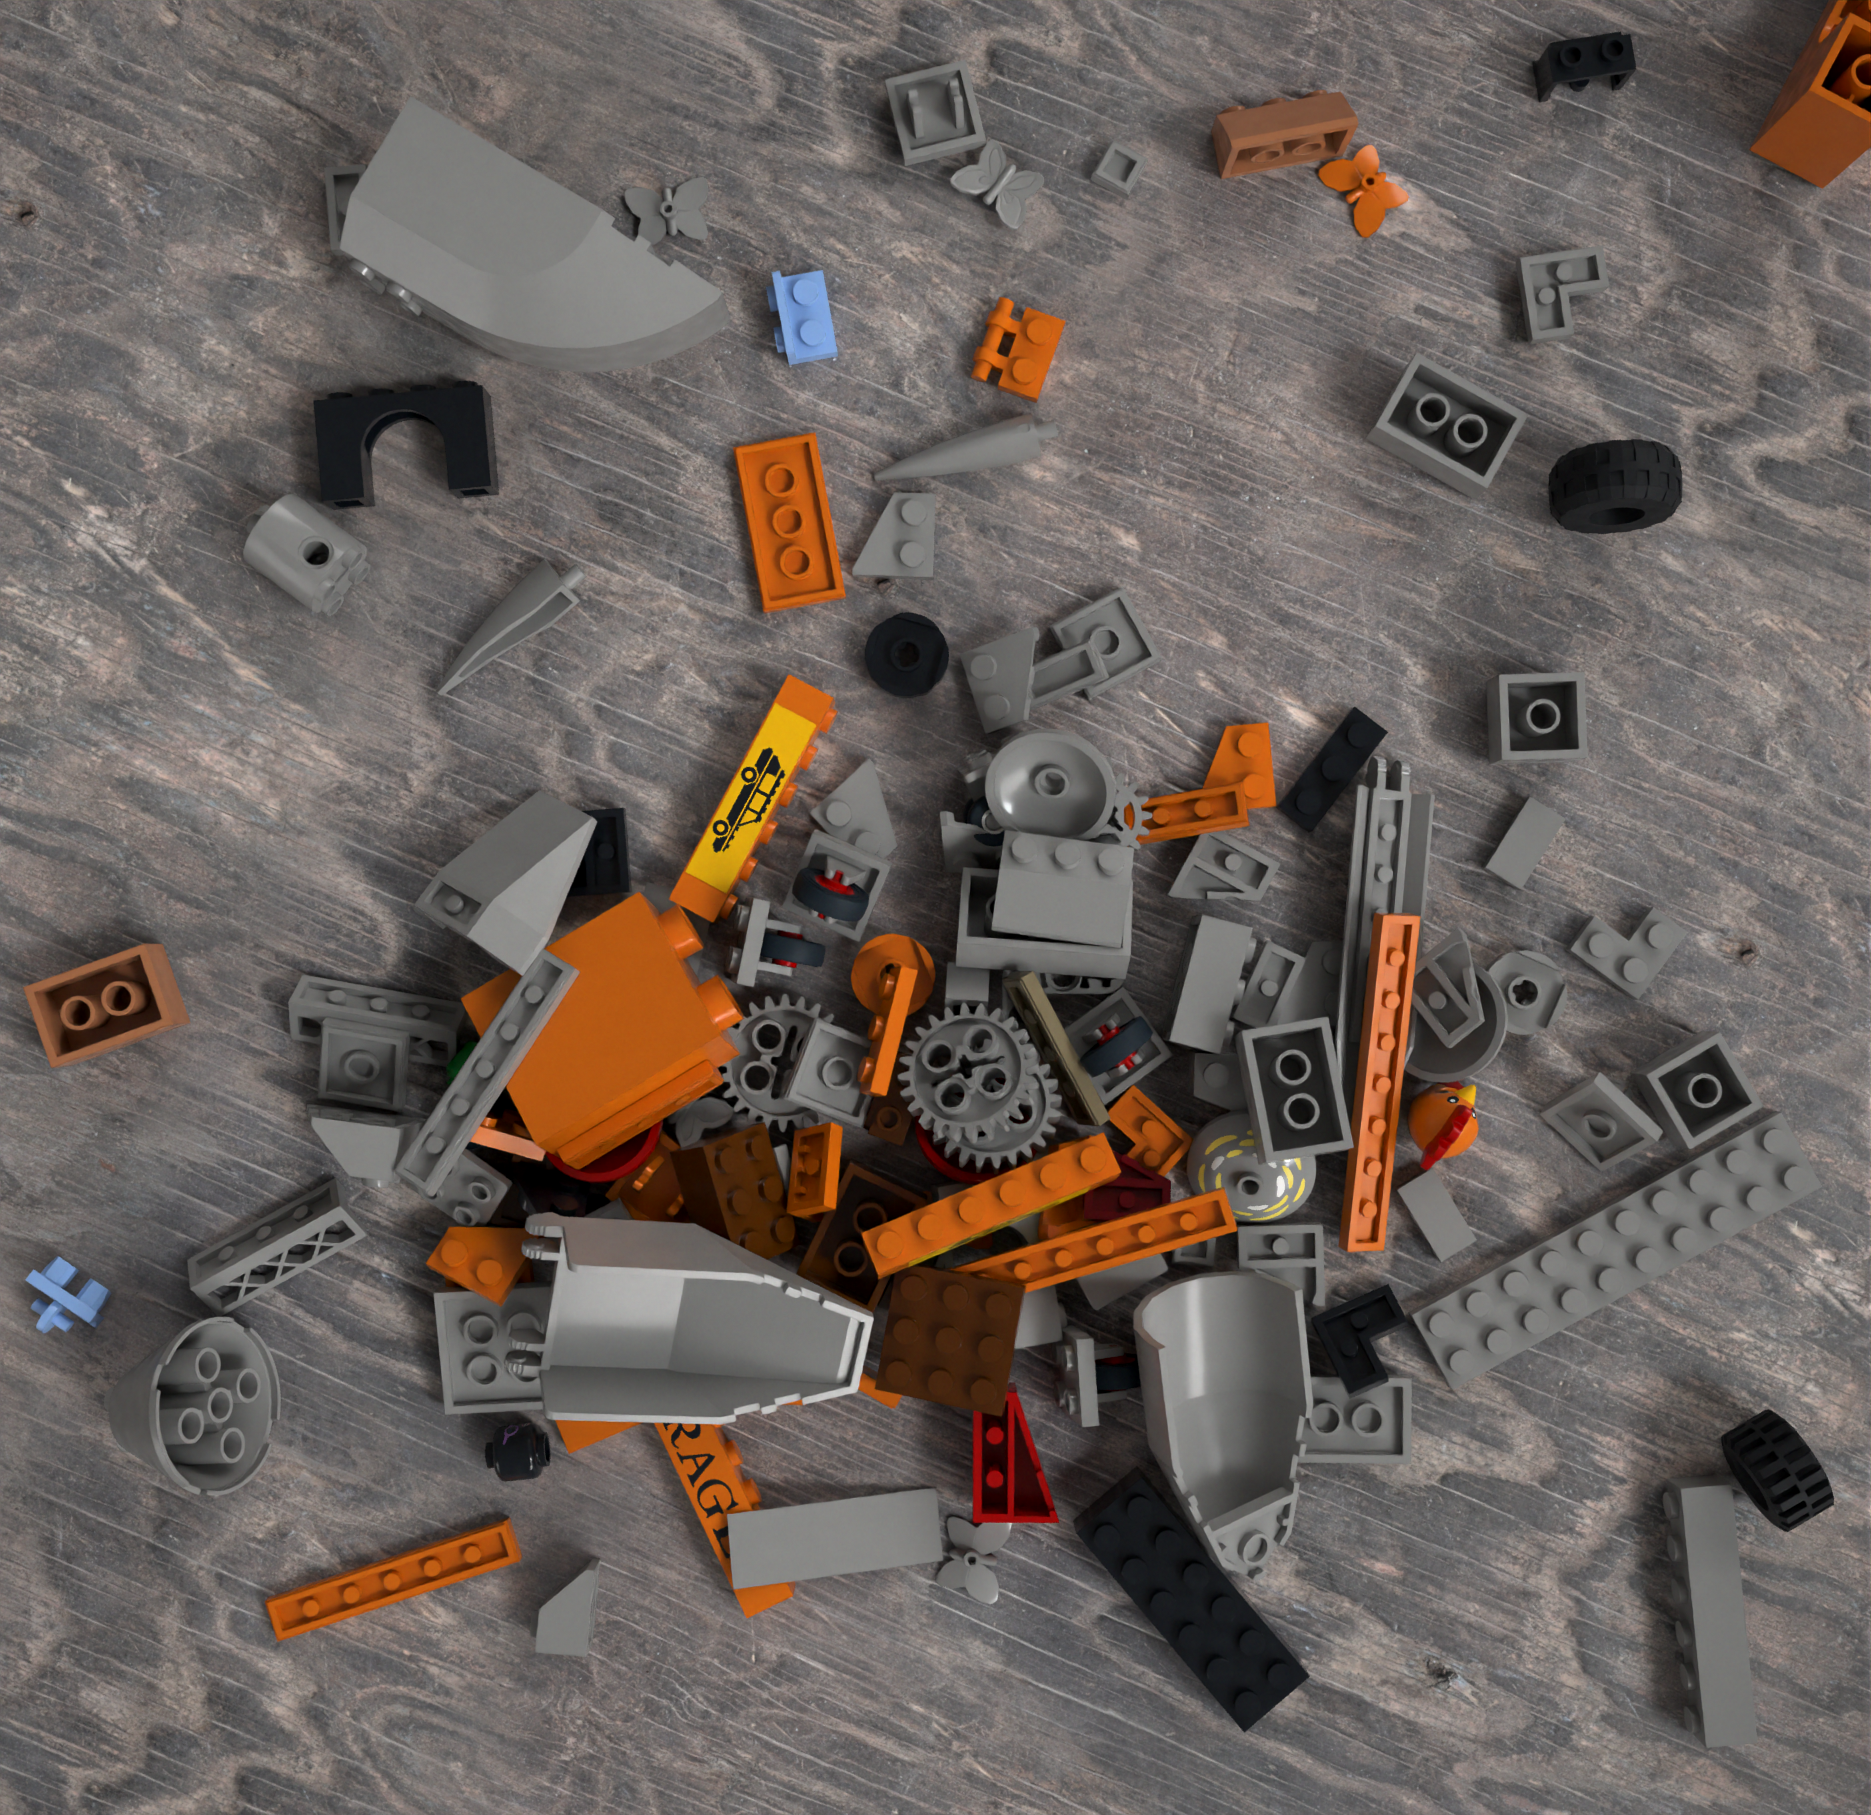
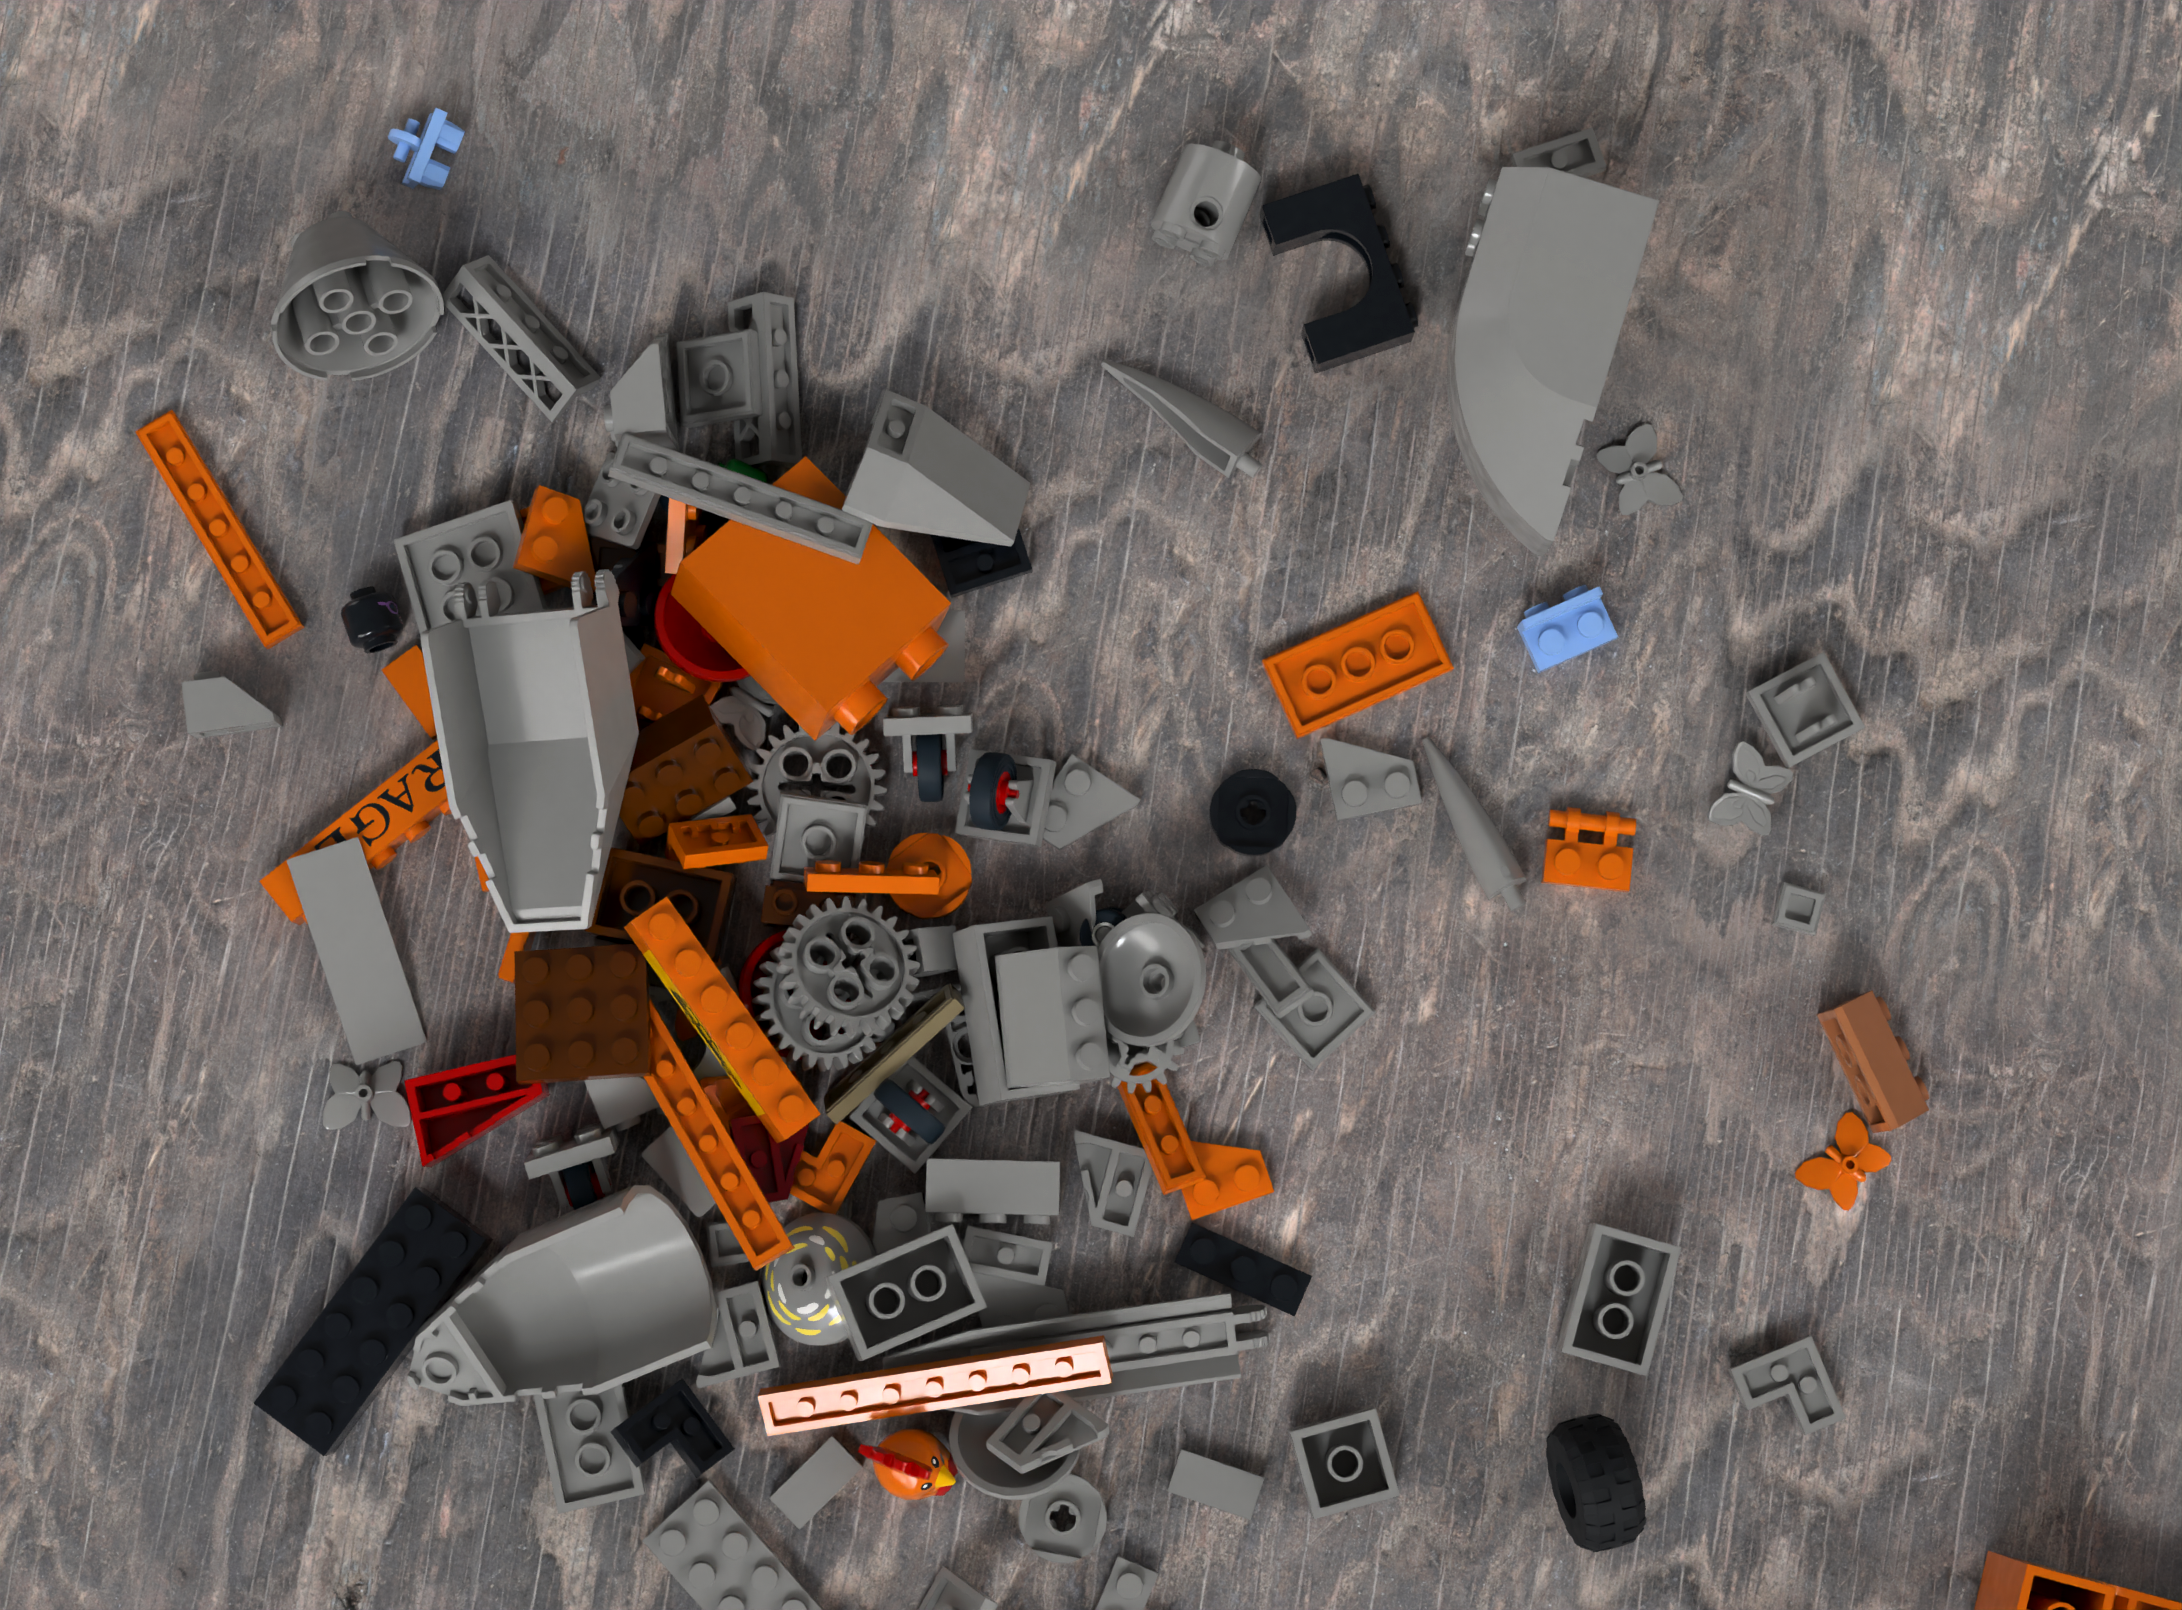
camera: 75 degrees right, 5 degrees down
(106, 1005) = (719, 119): nougat brick -> none
(641, 1115) = (732, 658): orange tile -> none
(753, 800) = (1070, 695): brick -> none
(1582, 60) = (2027, 1354): black window -> none

